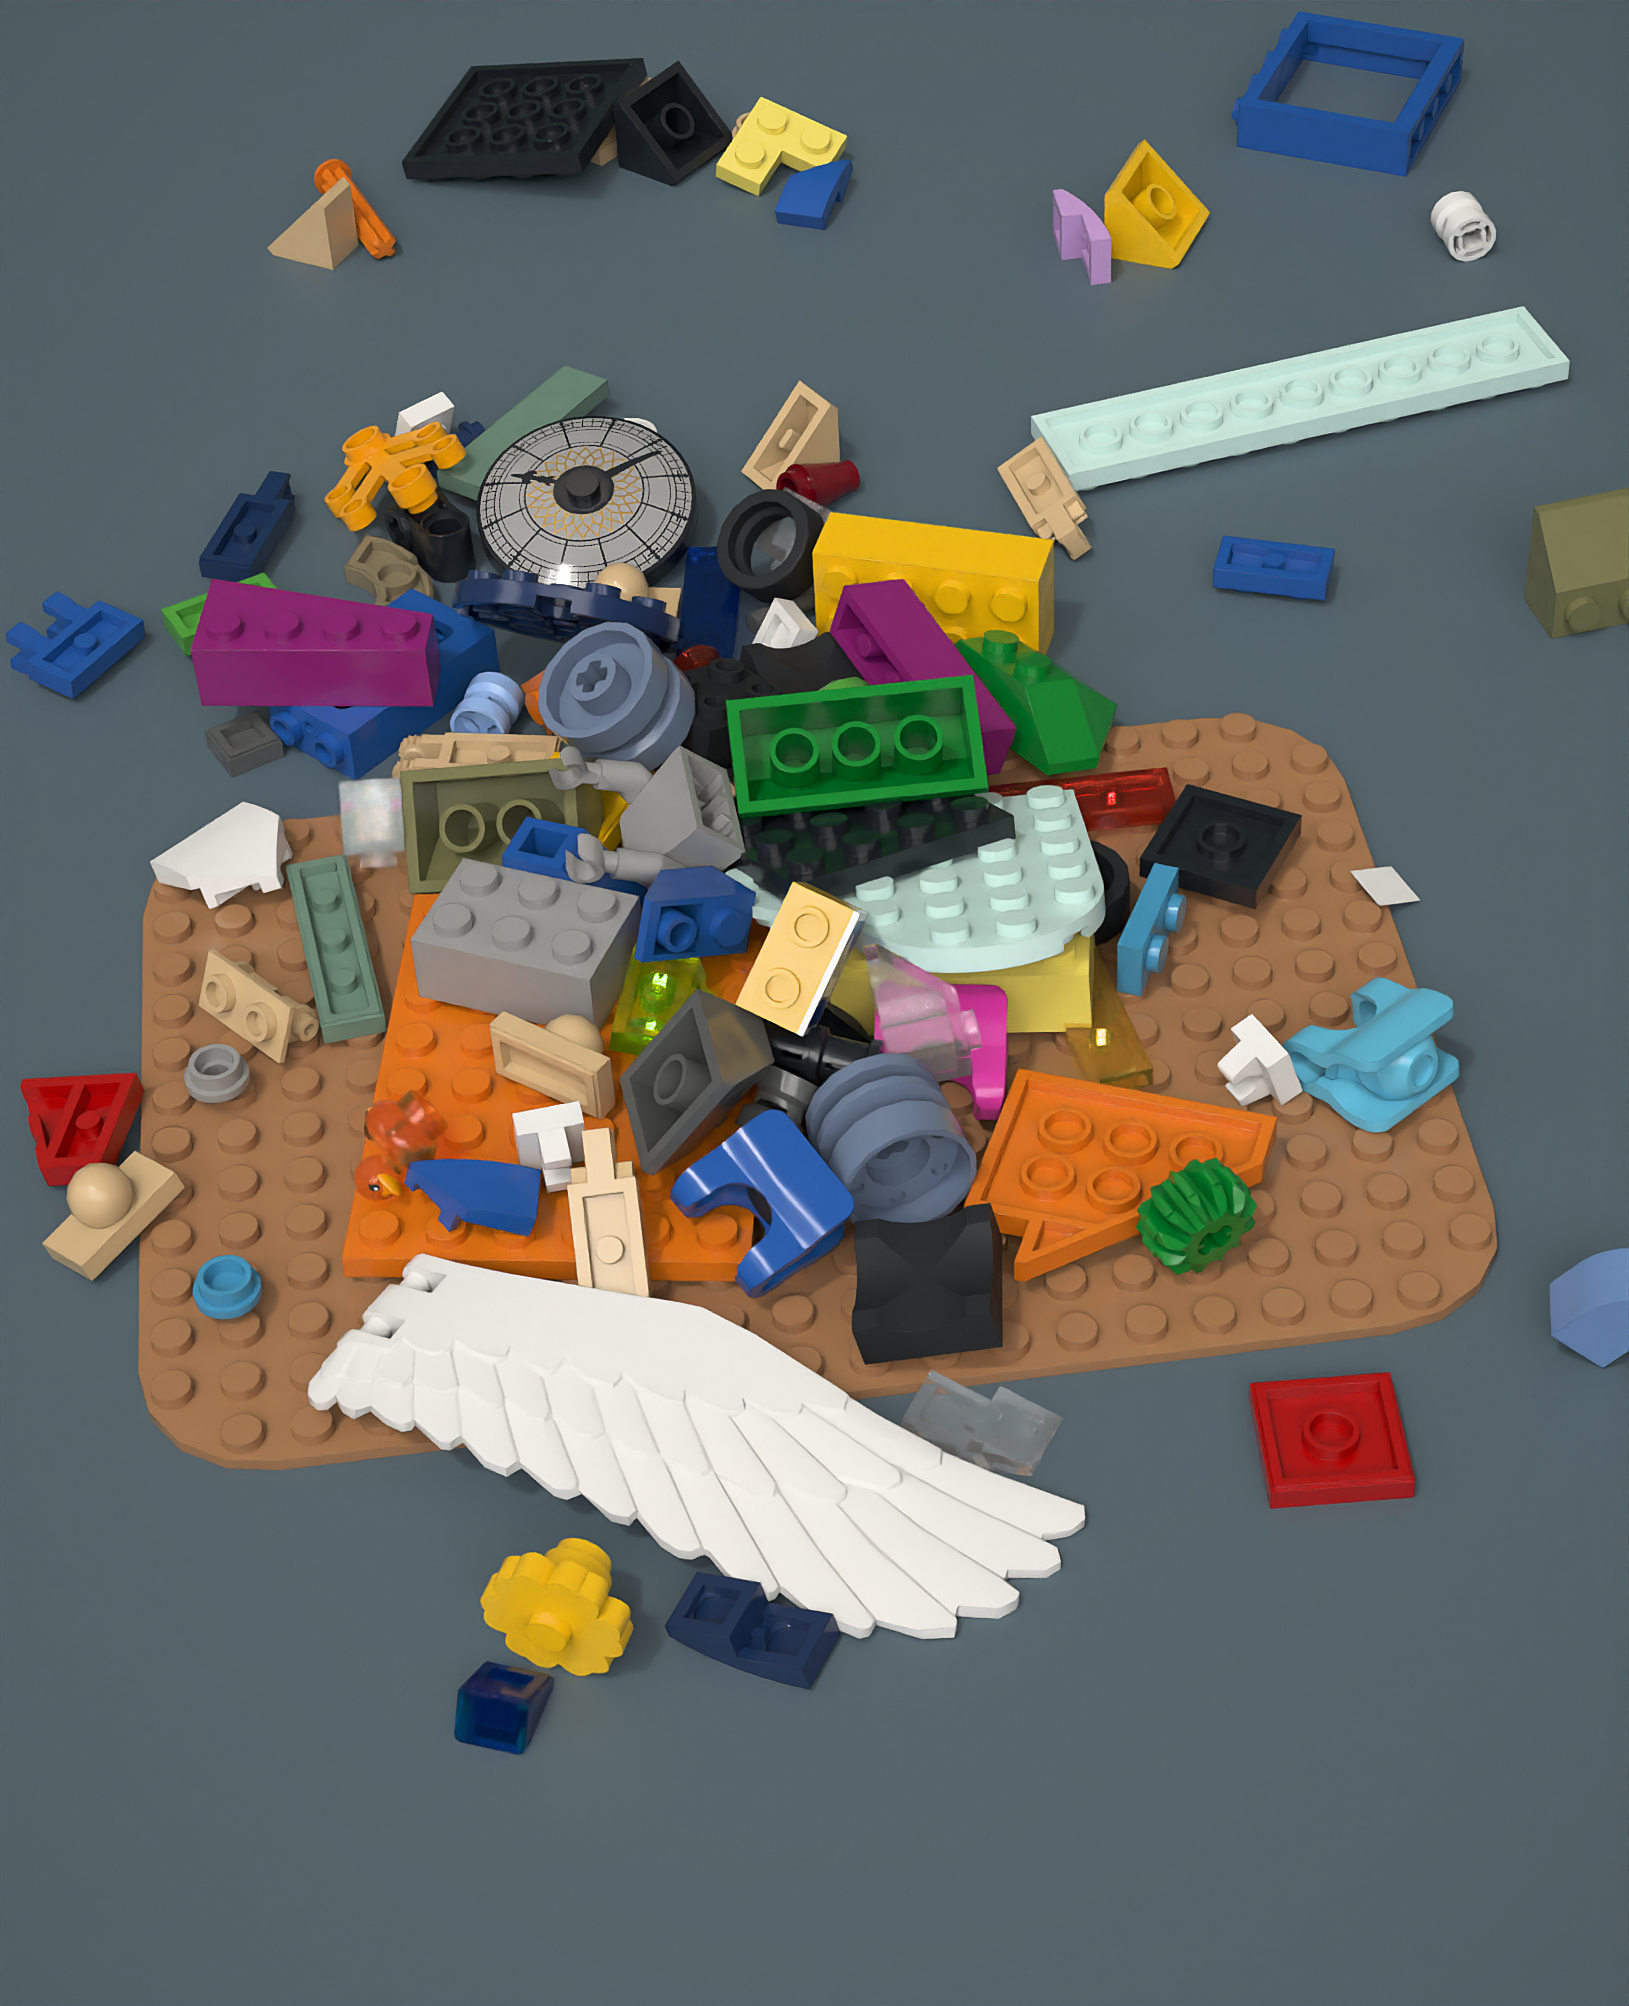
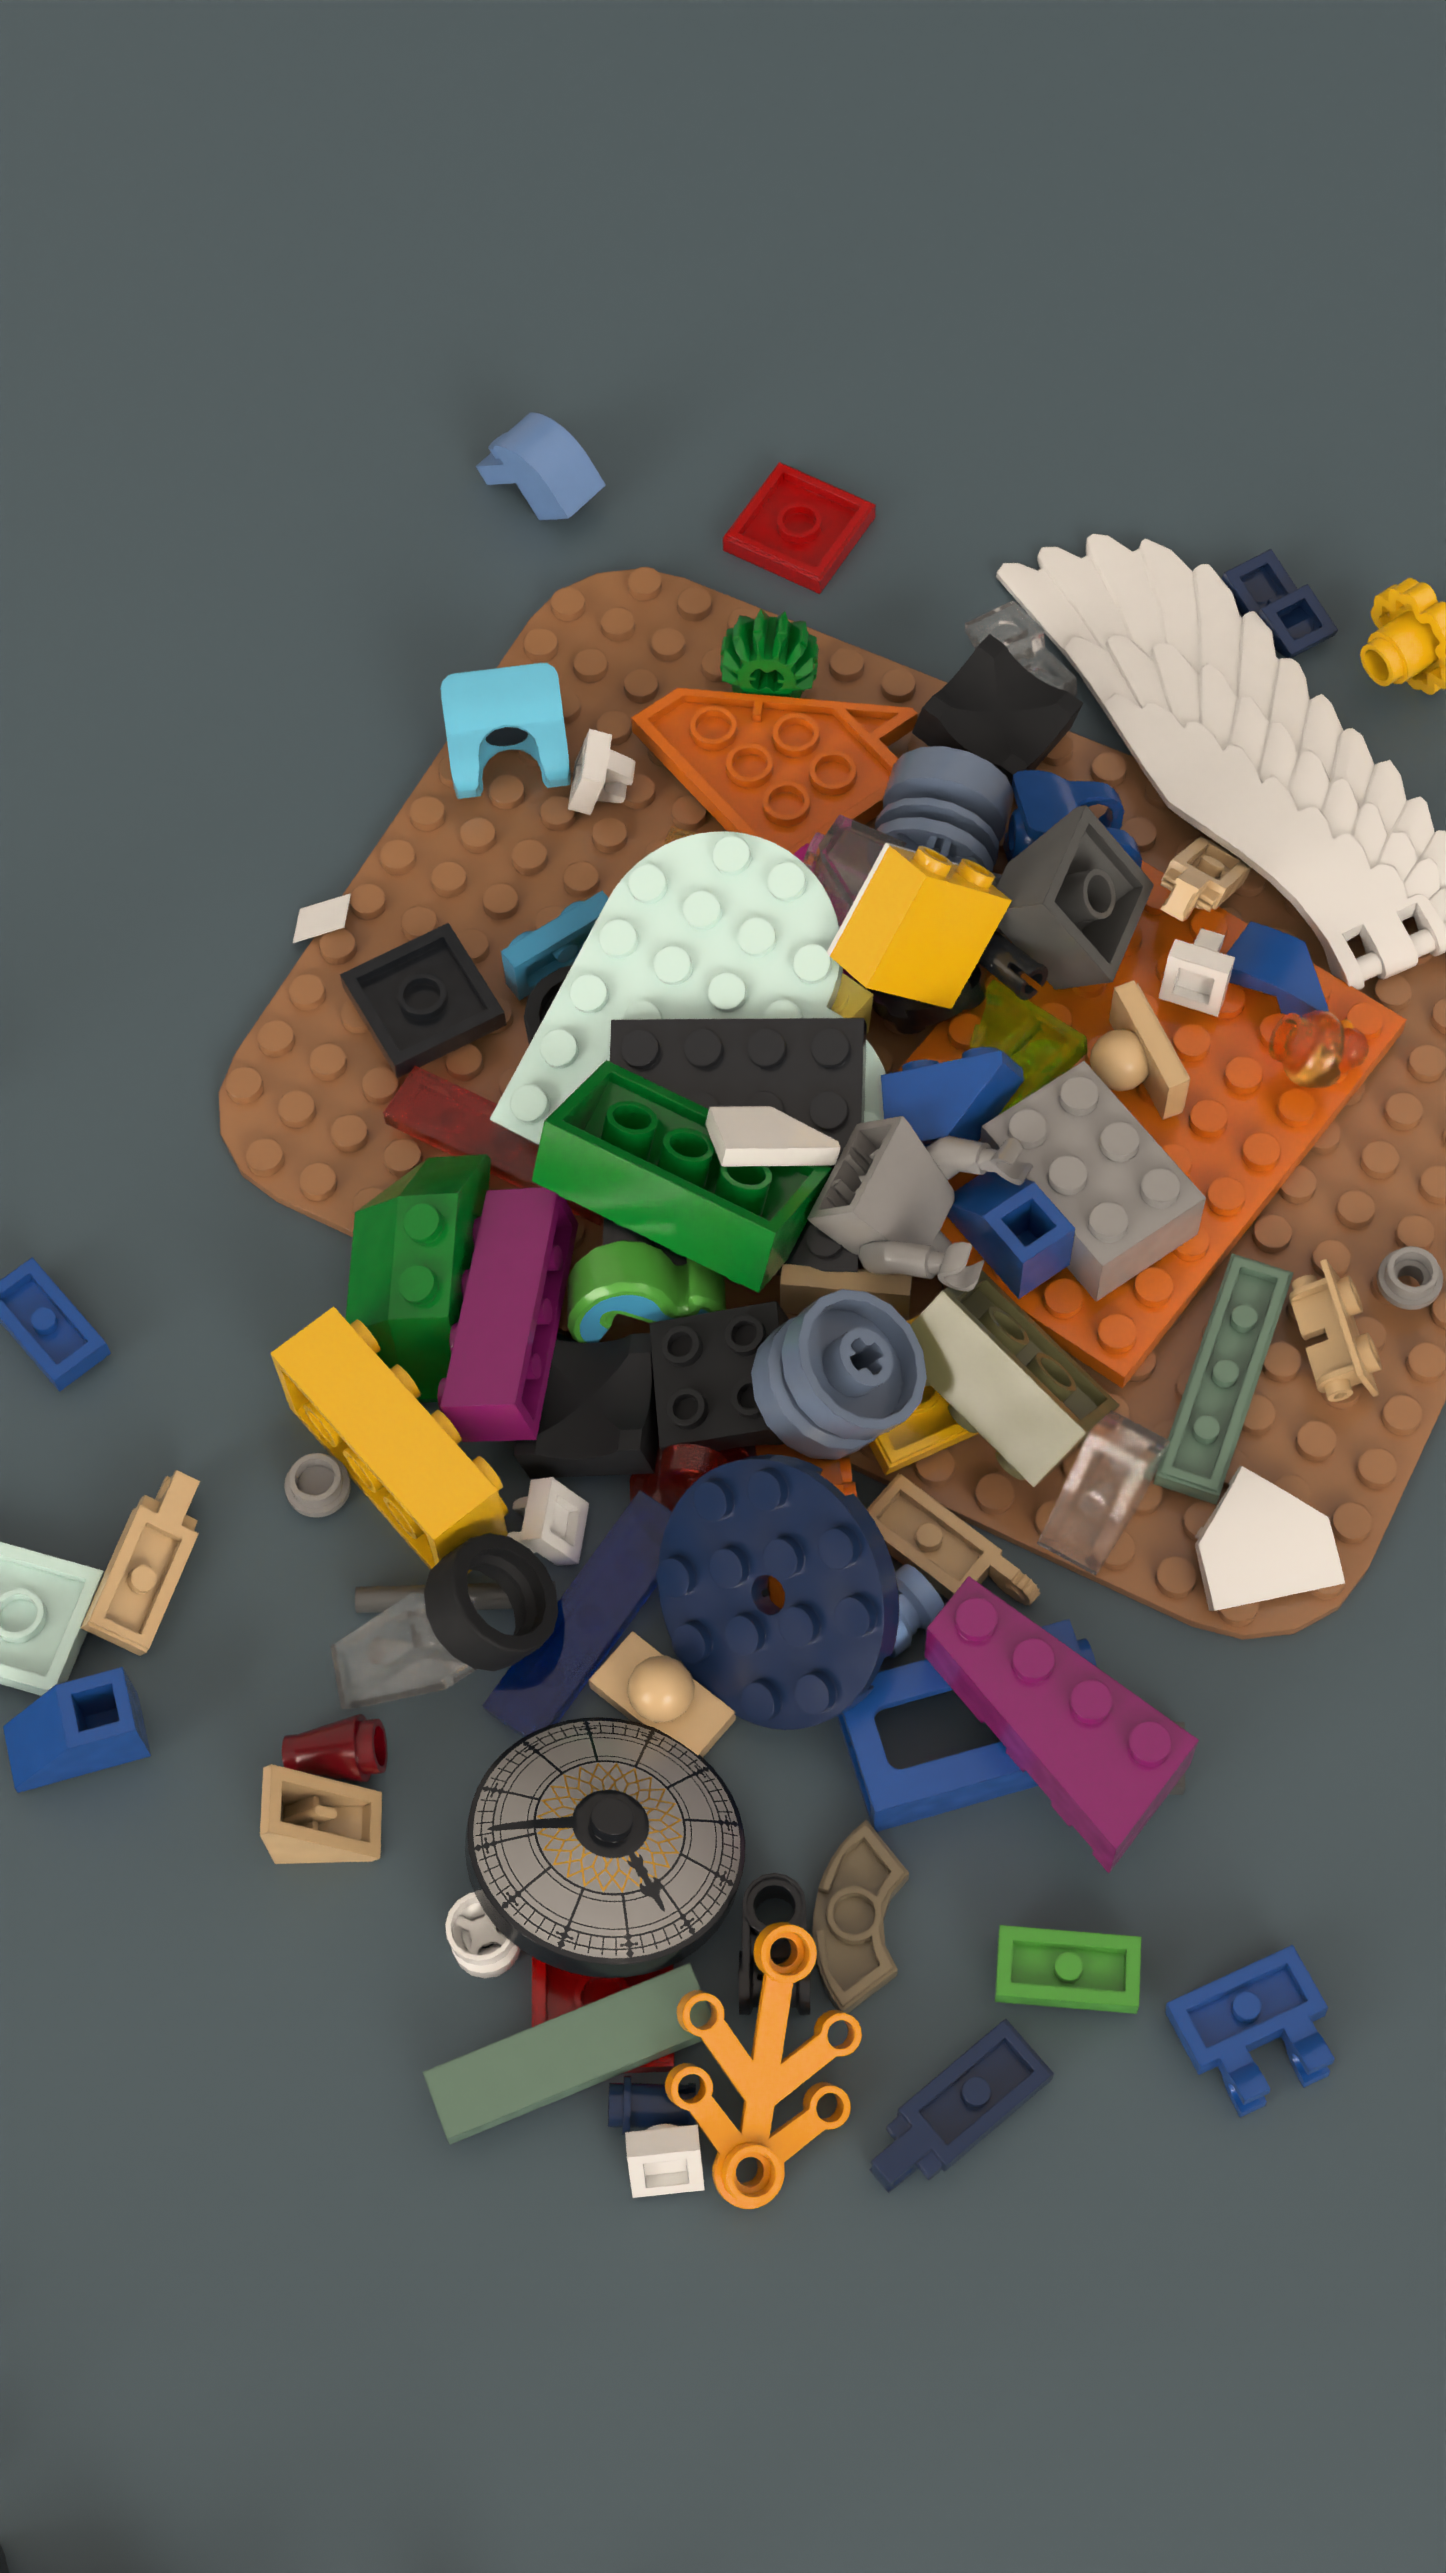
camera: 145 degrees left, 20 degrees up
(802, 780) = (767, 1138): none -> white tile
(985, 409) = (77, 1730): none -> blue slope

